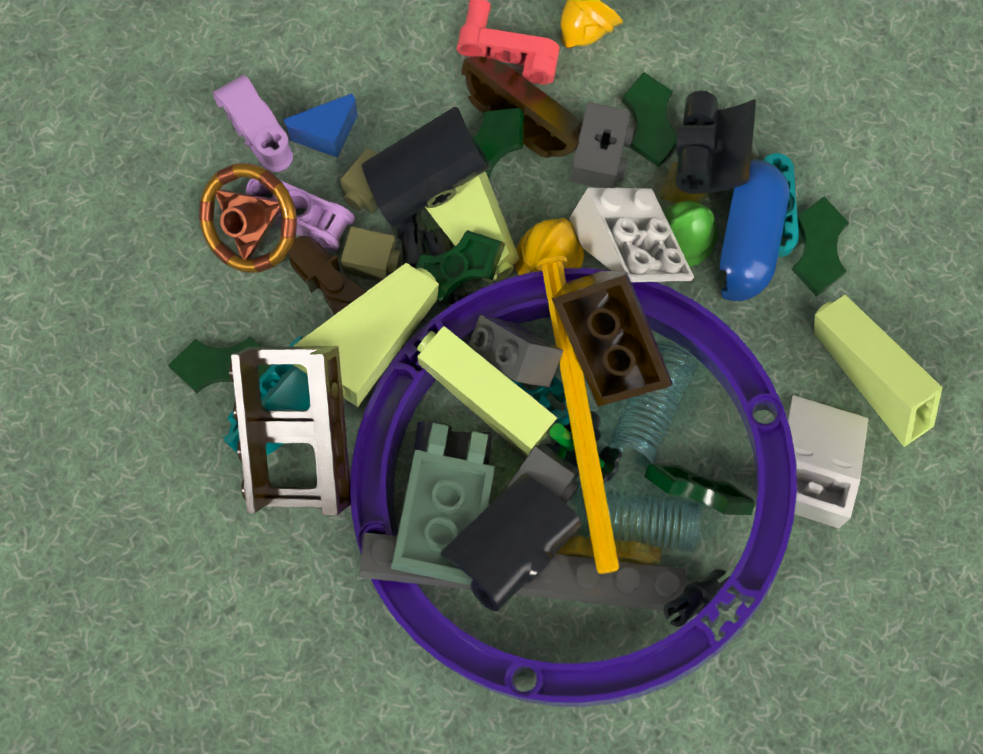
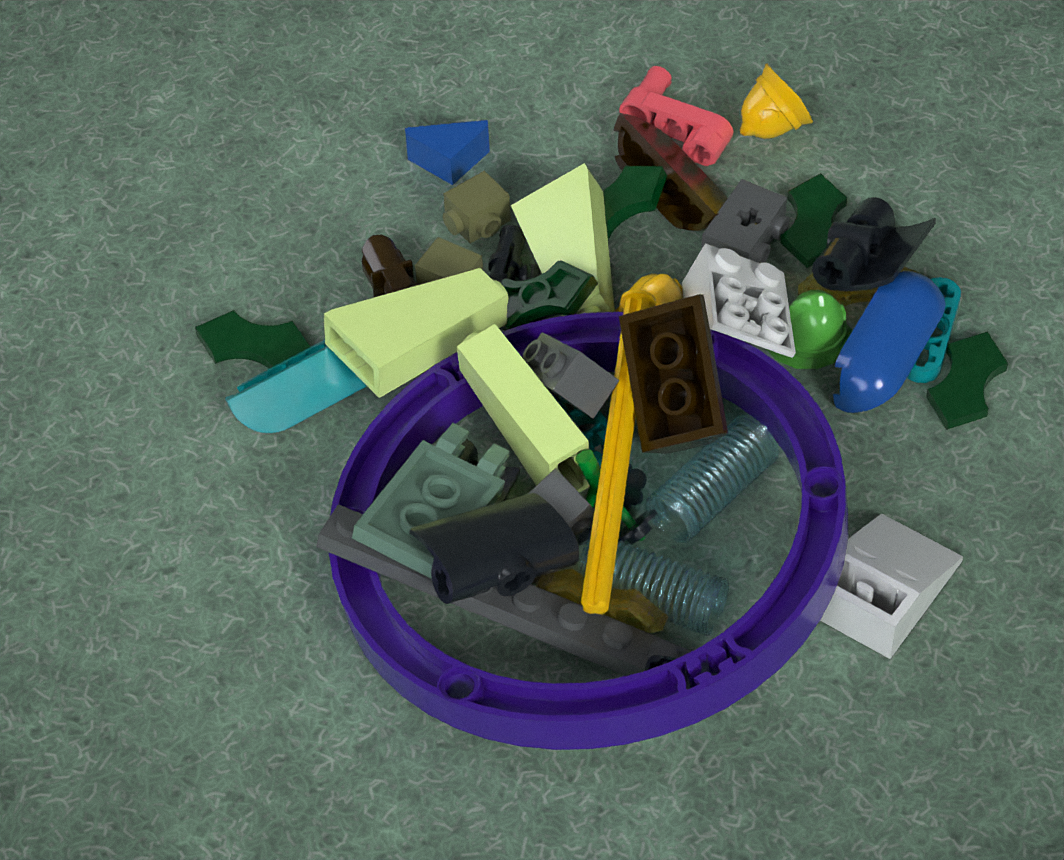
camera: 20 degrees right, 20 degrees down
(247, 218) = (331, 208): copper piece -> none
(256, 123) = (375, 132): lavender piece -> none
(319, 425) = (328, 399): window -> none
(322, 219) = (383, 211): lavender piece -> none
(424, 167) = (535, 194): black panel -> none
(716, 494) = (723, 564): dark green tile -> none
(879, 369) = (991, 508): yellowish green slope -> none

